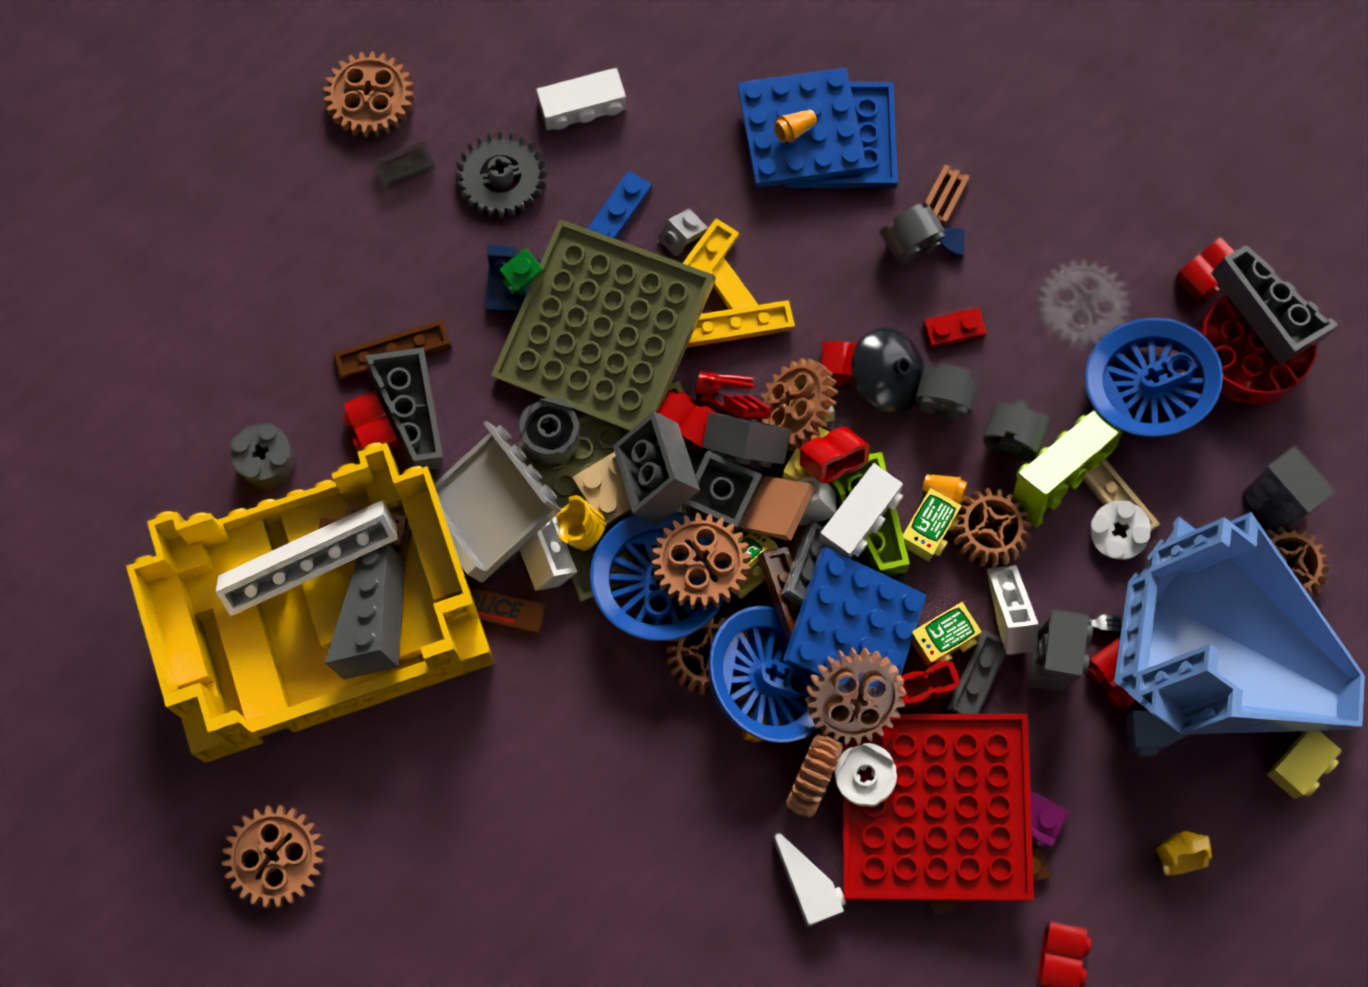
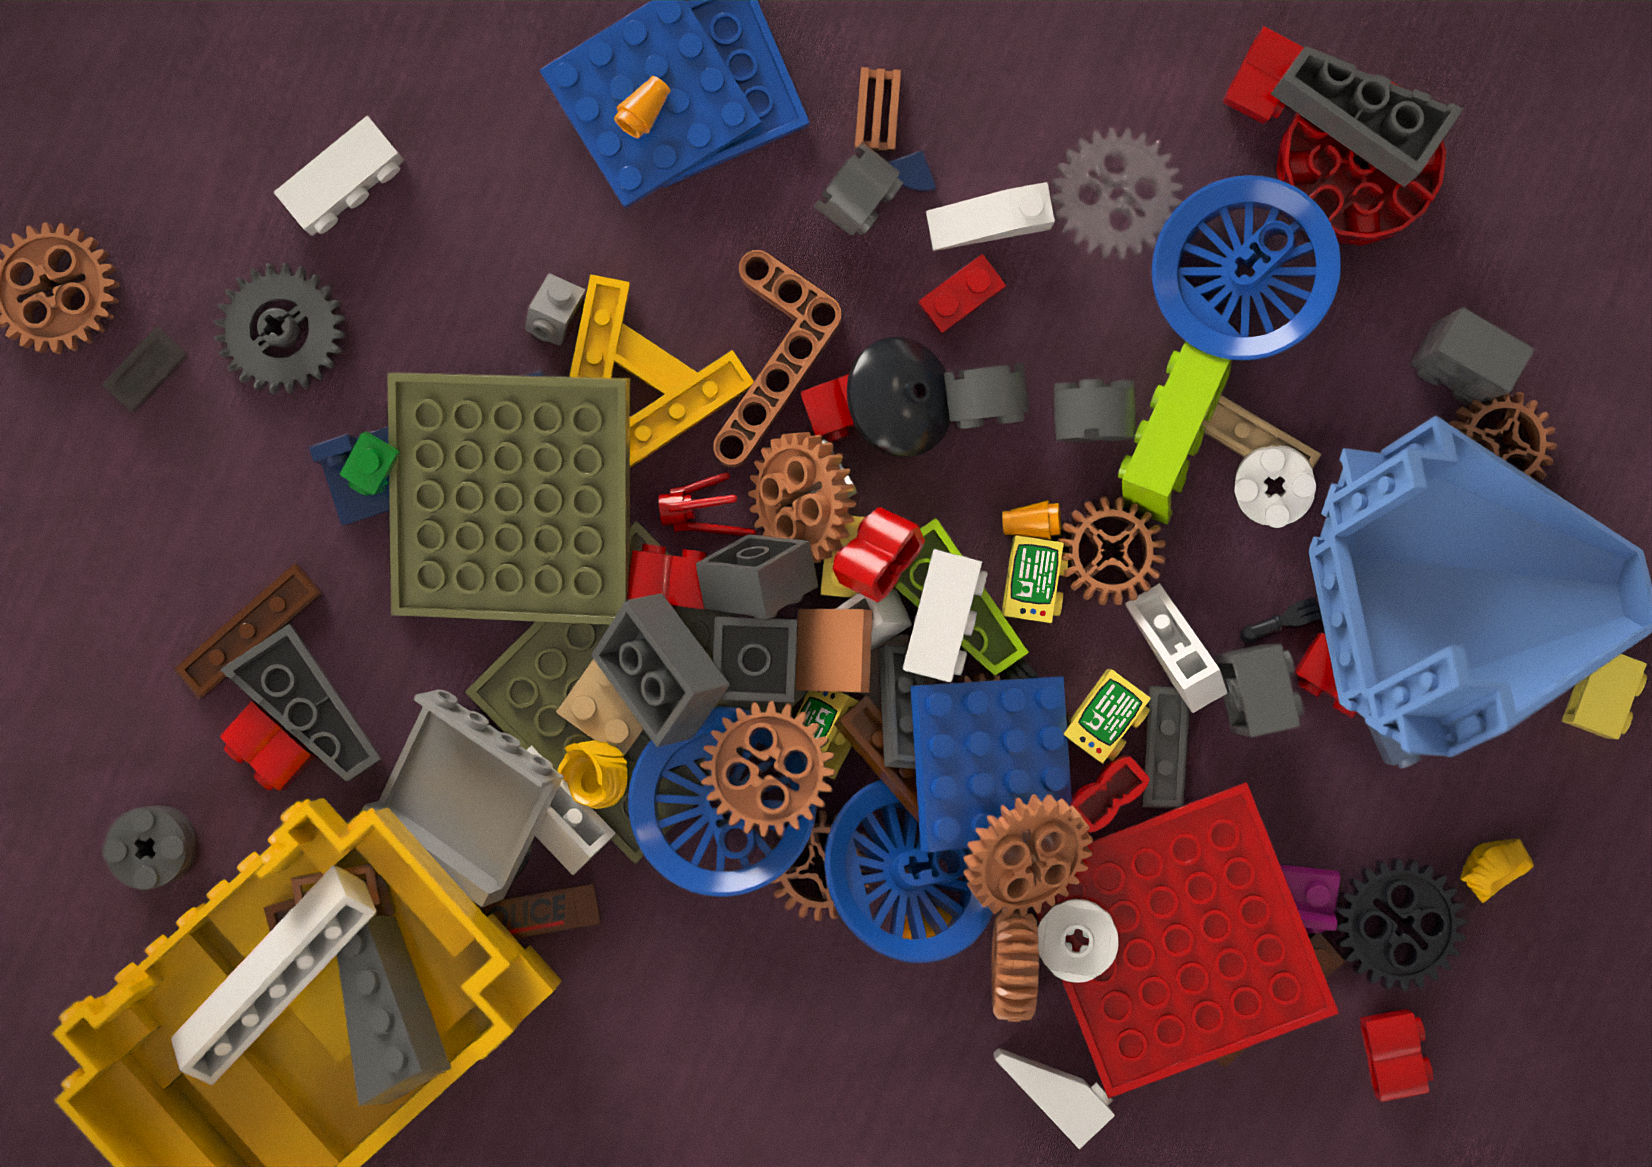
camera: 20 degrees left, 15 degrees up
(540, 418) = (489, 688): dark grey brick -> none
(621, 205) = (456, 314): blue plate -> none
(742, 406) = (746, 522): red tile -> none
(818, 319) = (781, 360): none -> nougat beam
(995, 286) = (991, 217): none -> white slope
(1123, 852) = (1377, 950): none -> black gear

